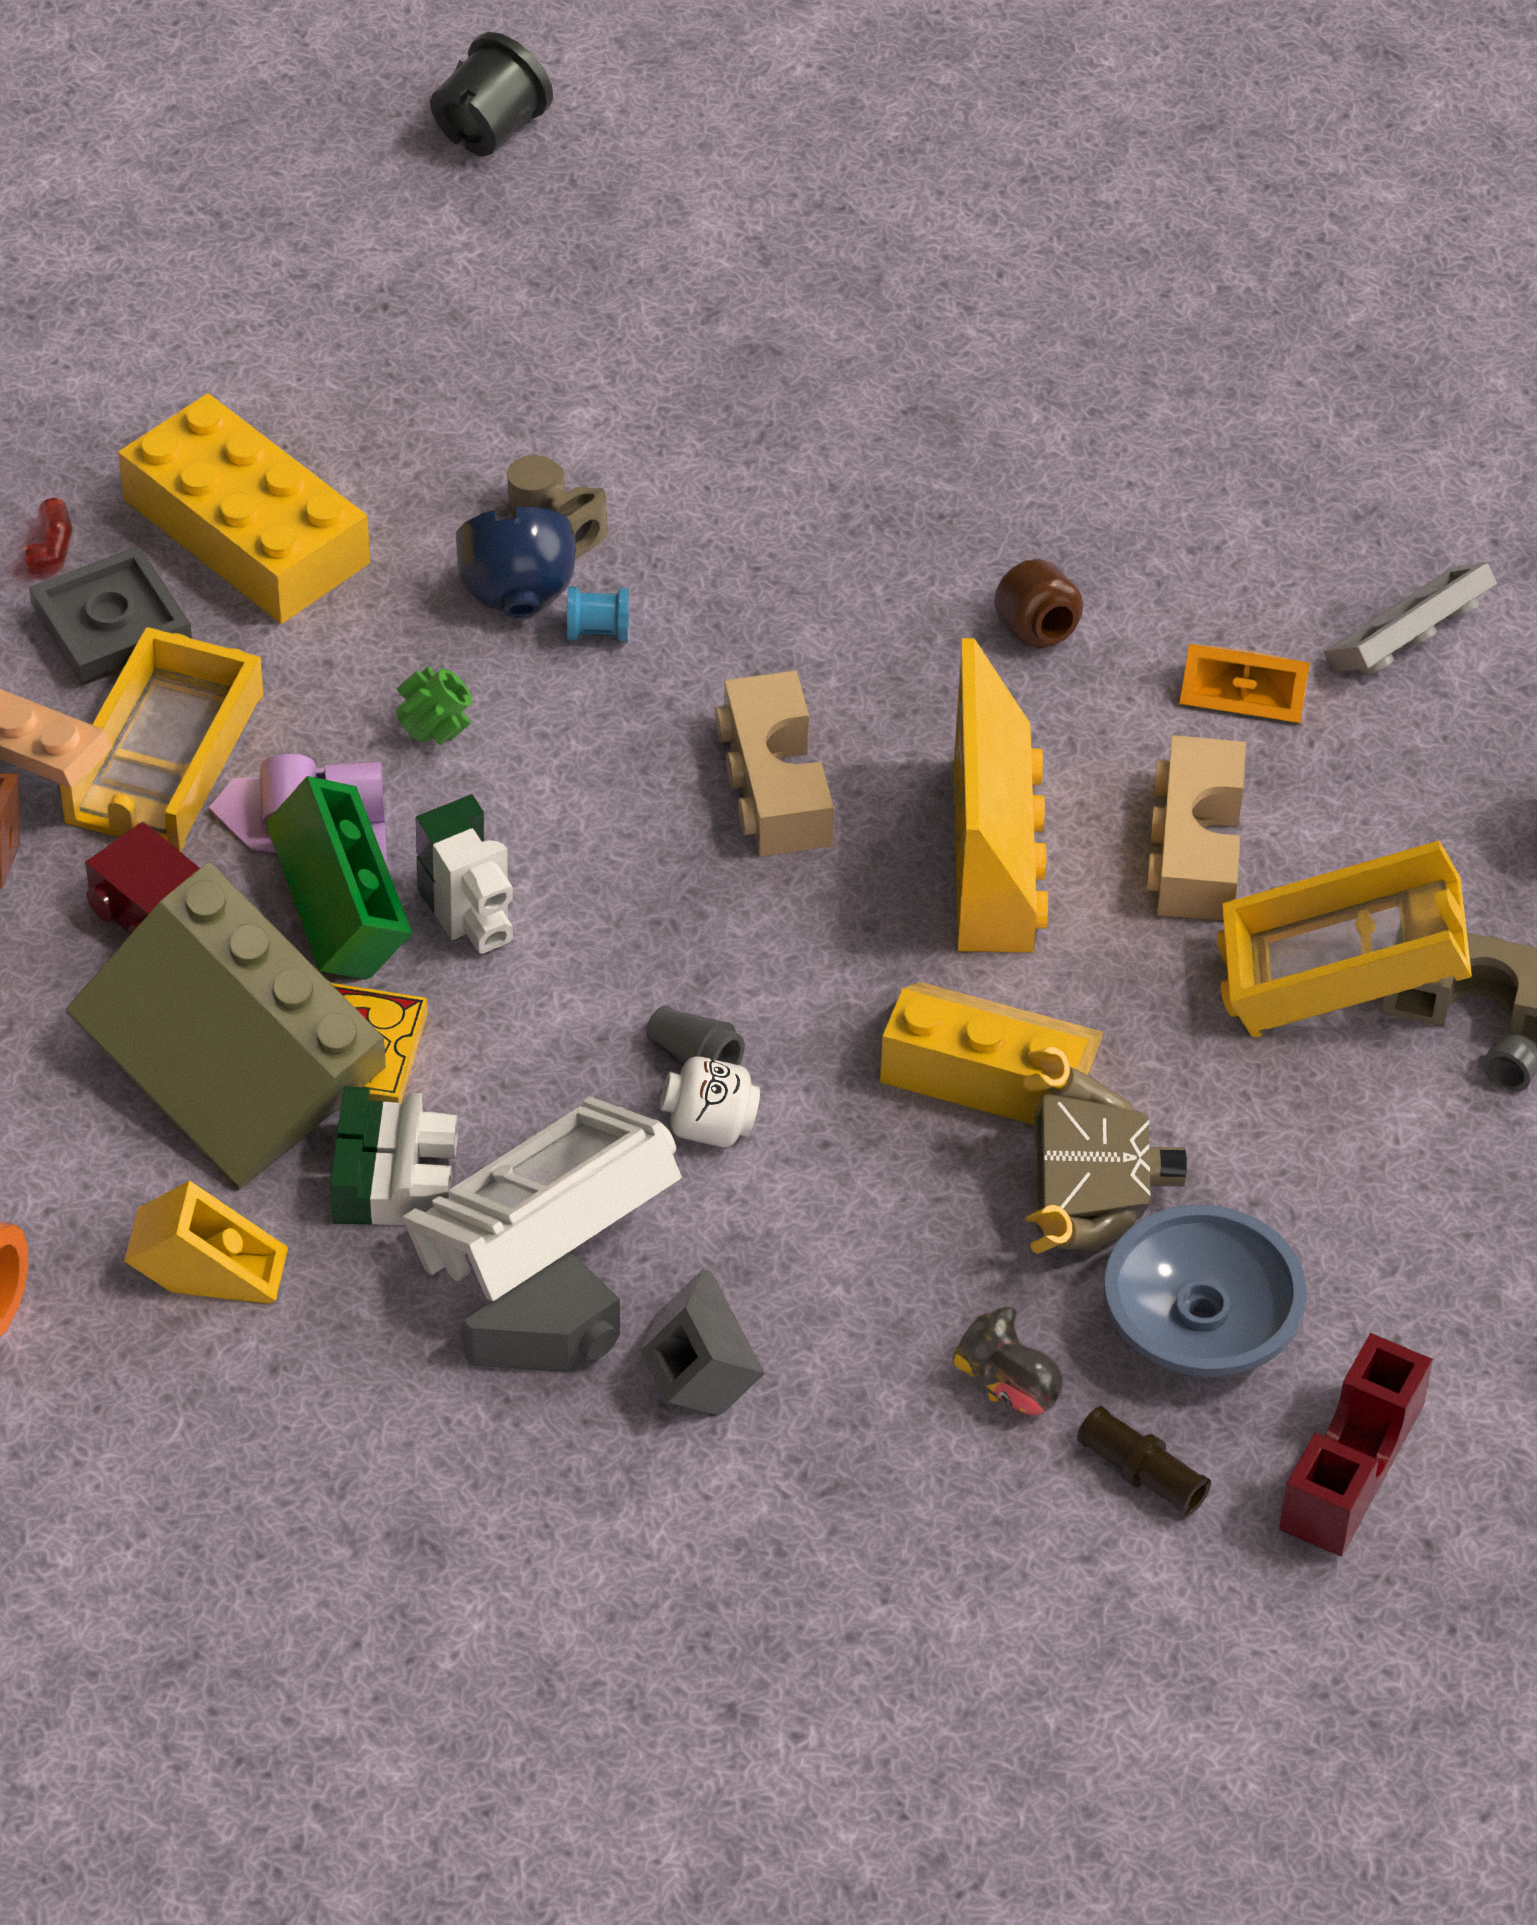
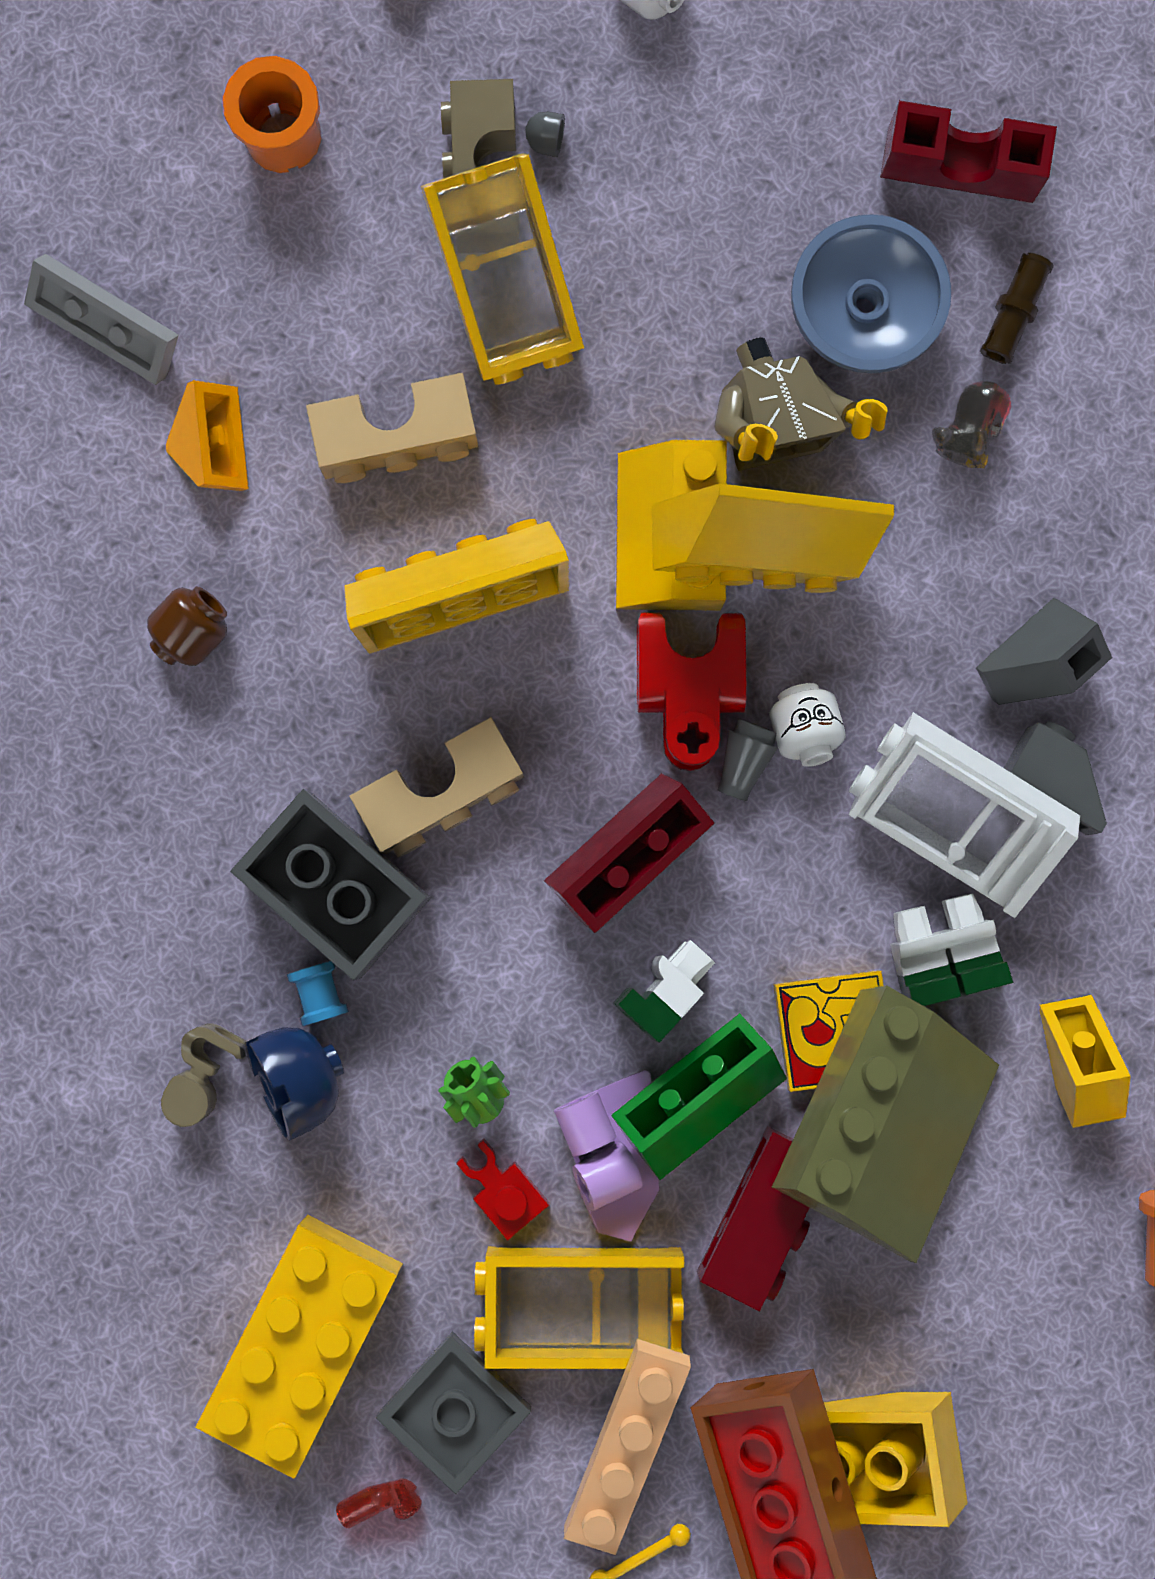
camera: 110 degrees left, 35 degrees up
(313, 719) = (507, 1195): none -> red plate
(633, 893) = (629, 852): none -> dark red brick
(702, 628) = (330, 884): none -> dark grey brick
(794, 1010) = (691, 689): none -> red piece
(935, 1064) = (766, 537): none -> yellow slope

